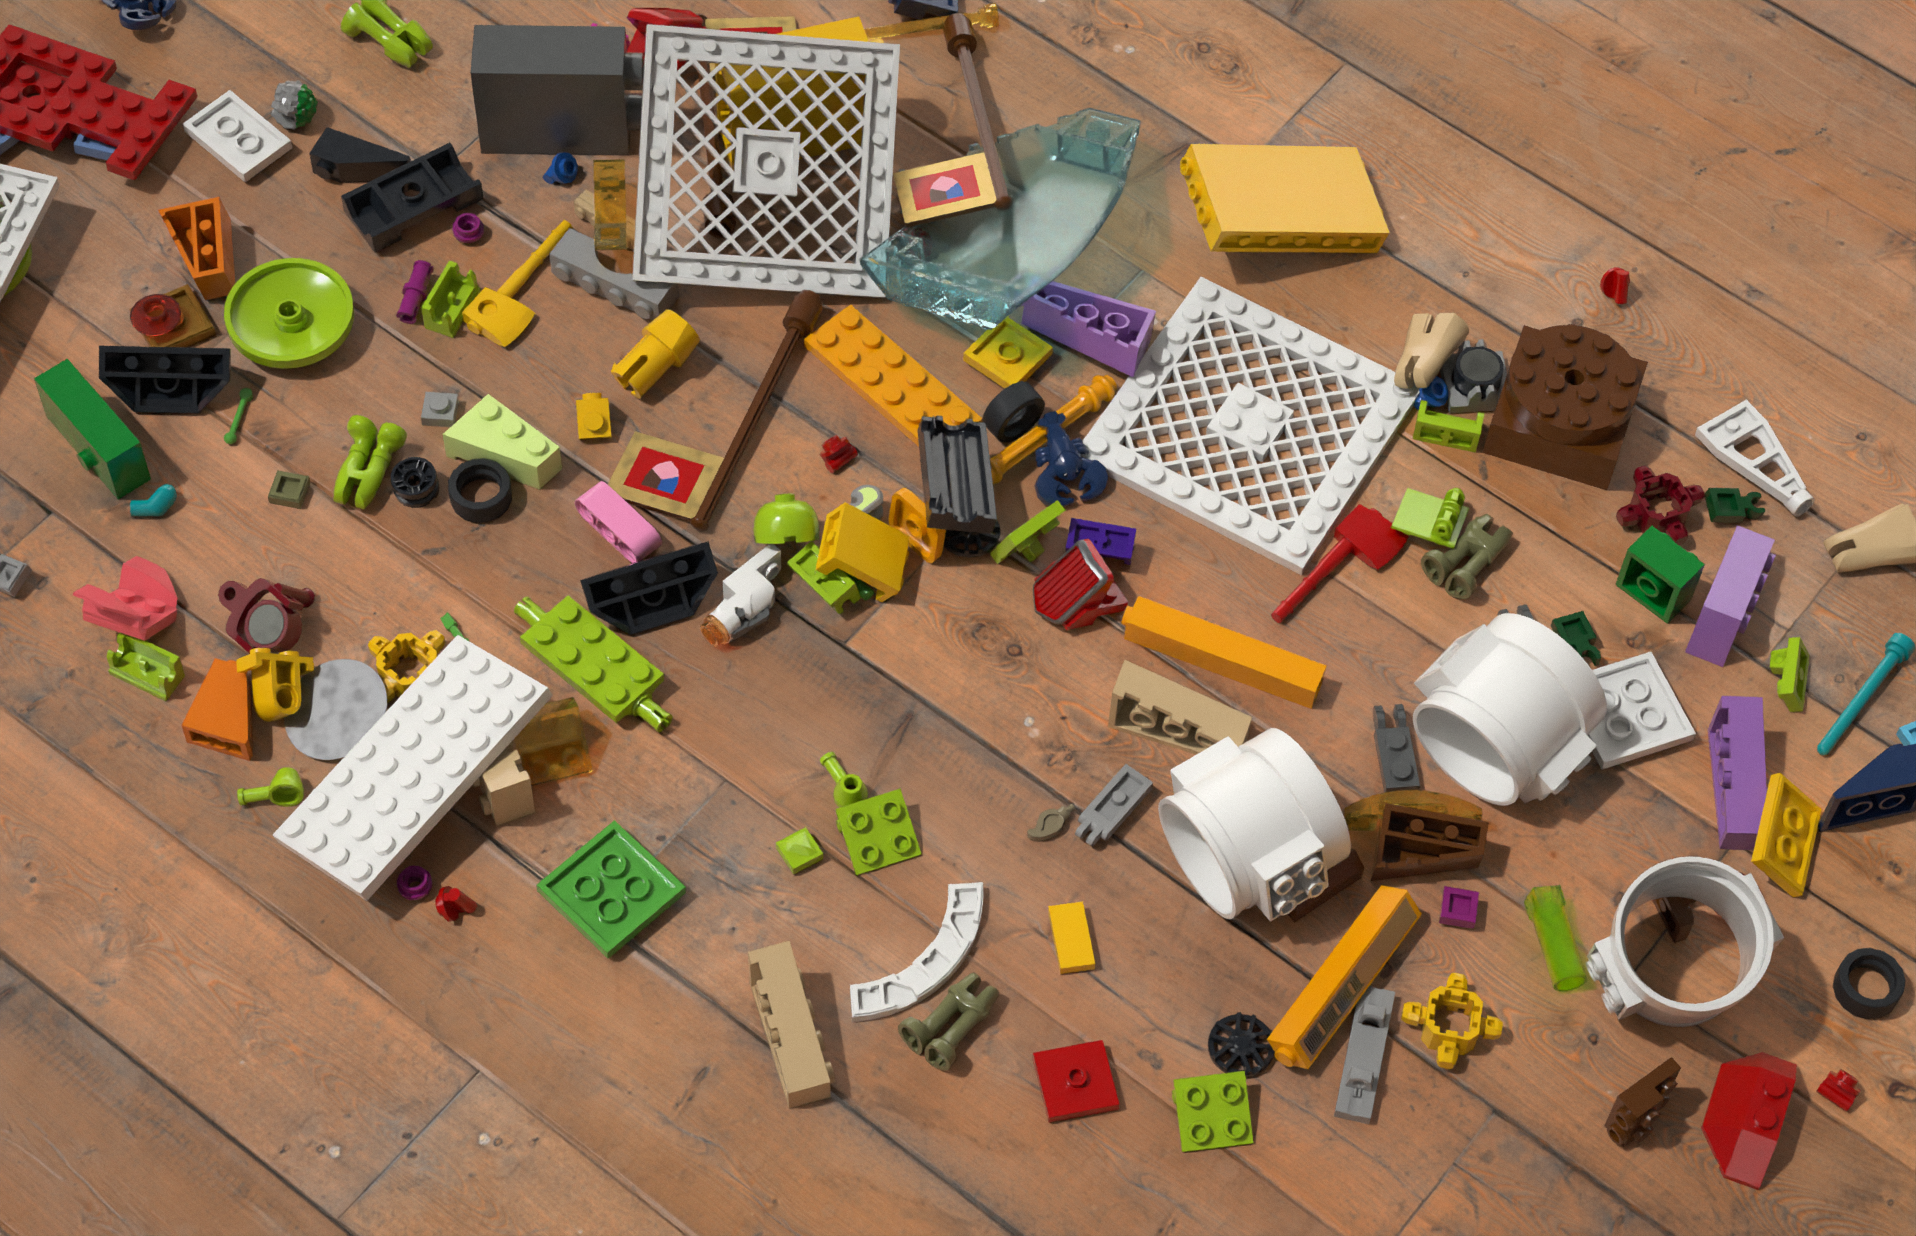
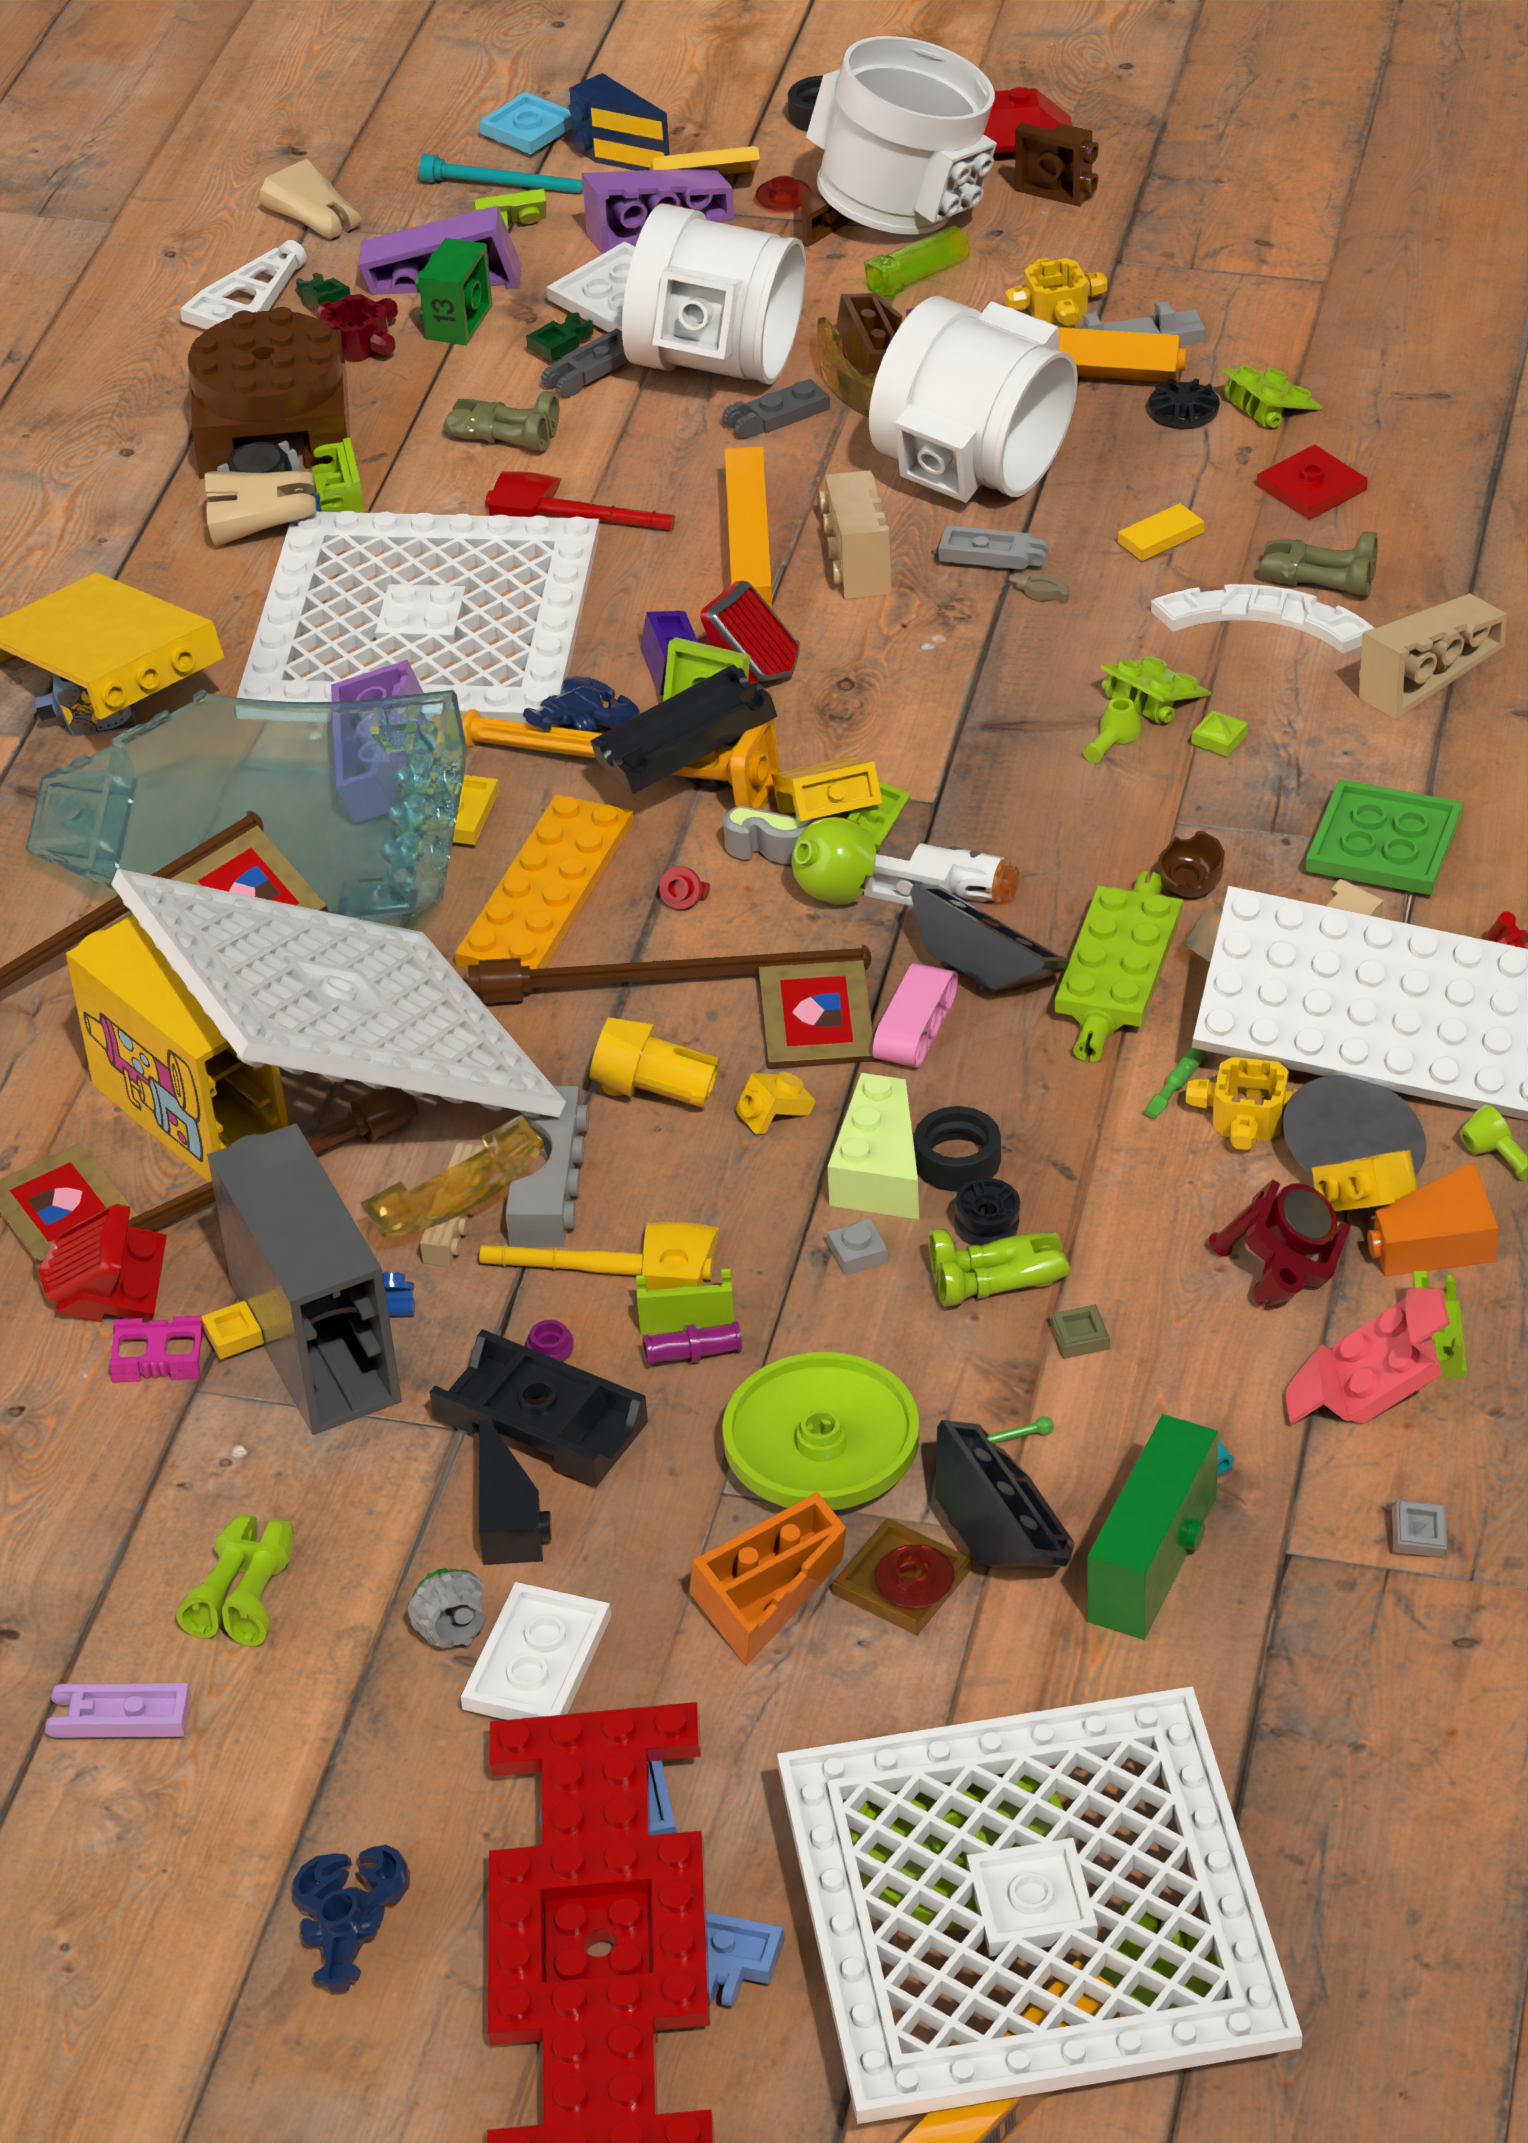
camera: 110 degrees left, 15 degrees down
(653, 746) = (1192, 865): none -> reddish brown hair
(1013, 411) = (557, 738): black tyre -> none
(1432, 517) = (473, 455): lime hinge -> none
(1615, 284) = (66, 424): red plate -> none

